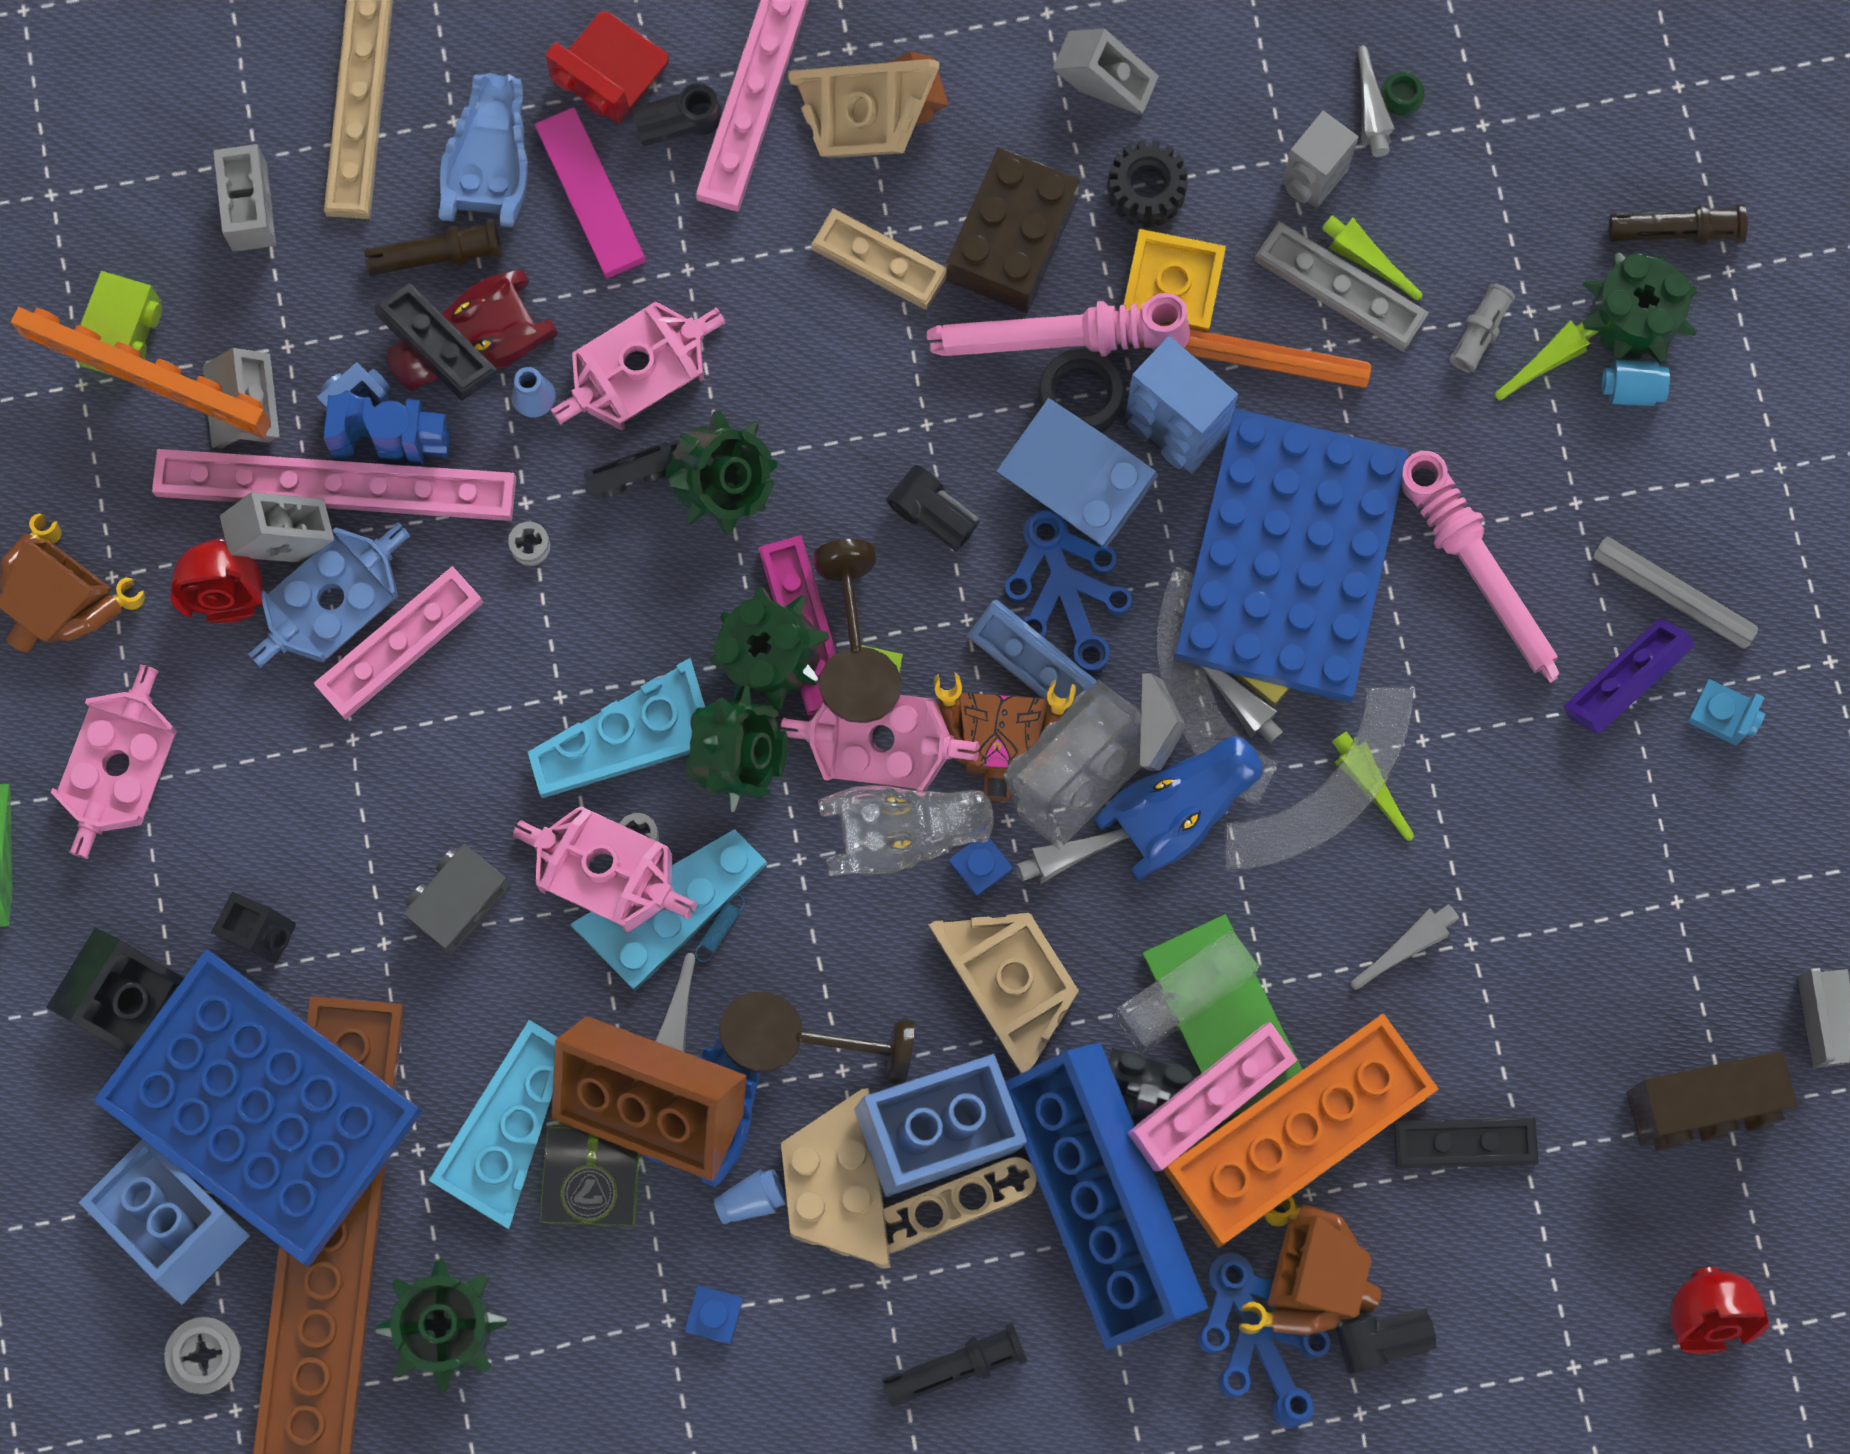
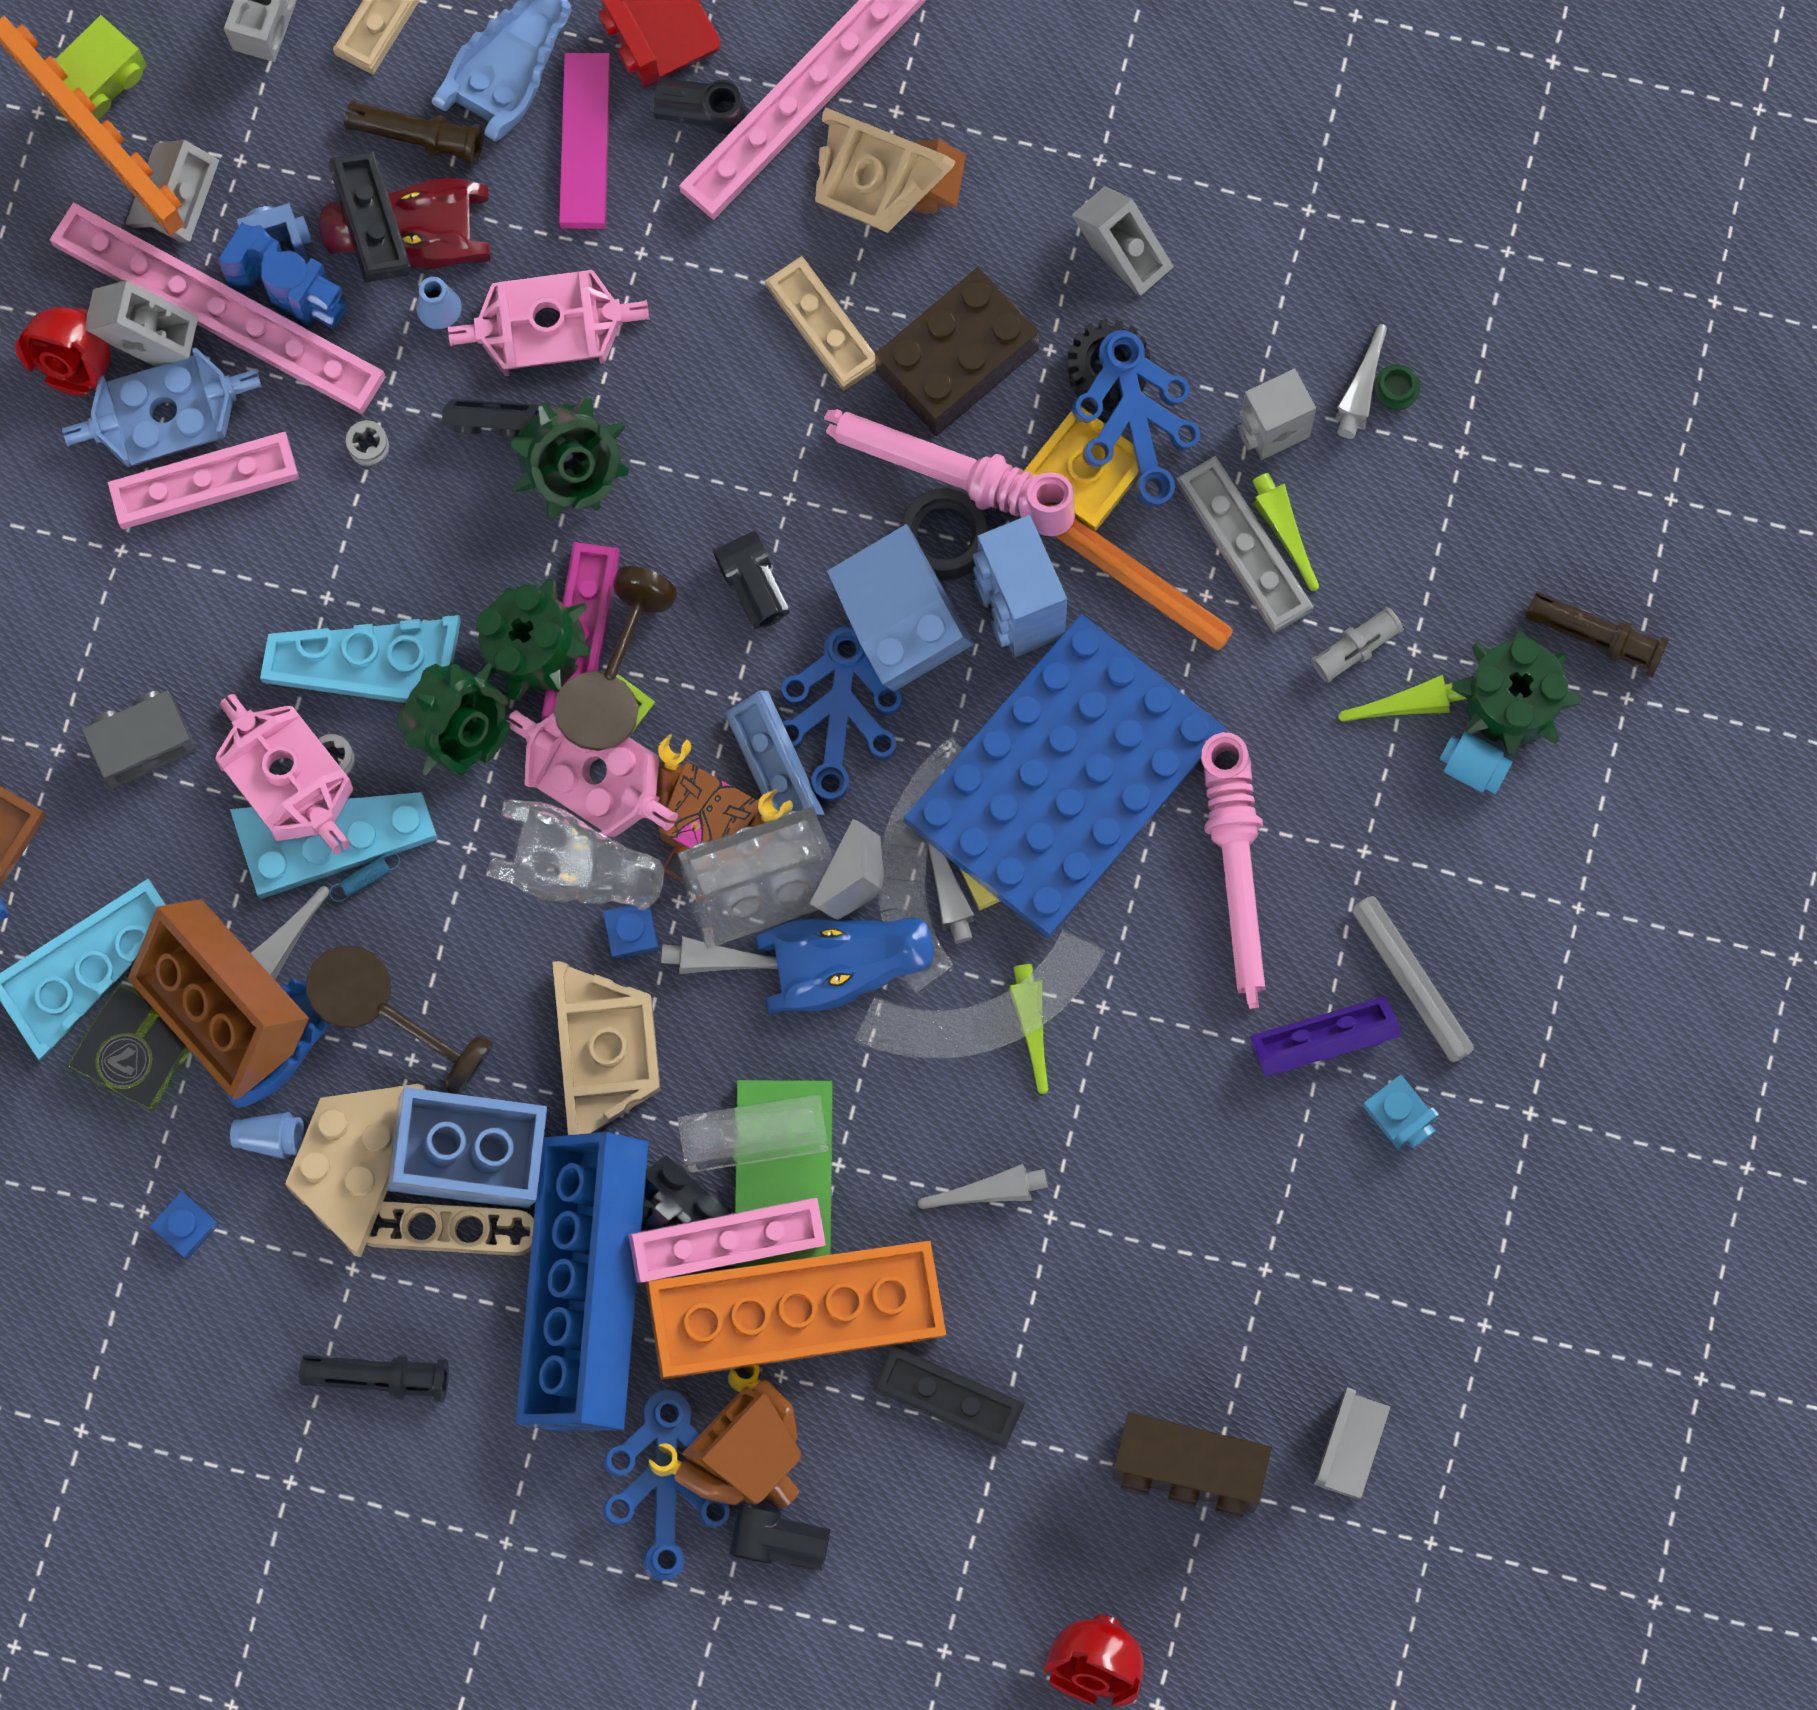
camera: 30 degrees right, 0 degrees up
(1196, 212) = (1135, 411): none -> blue plant

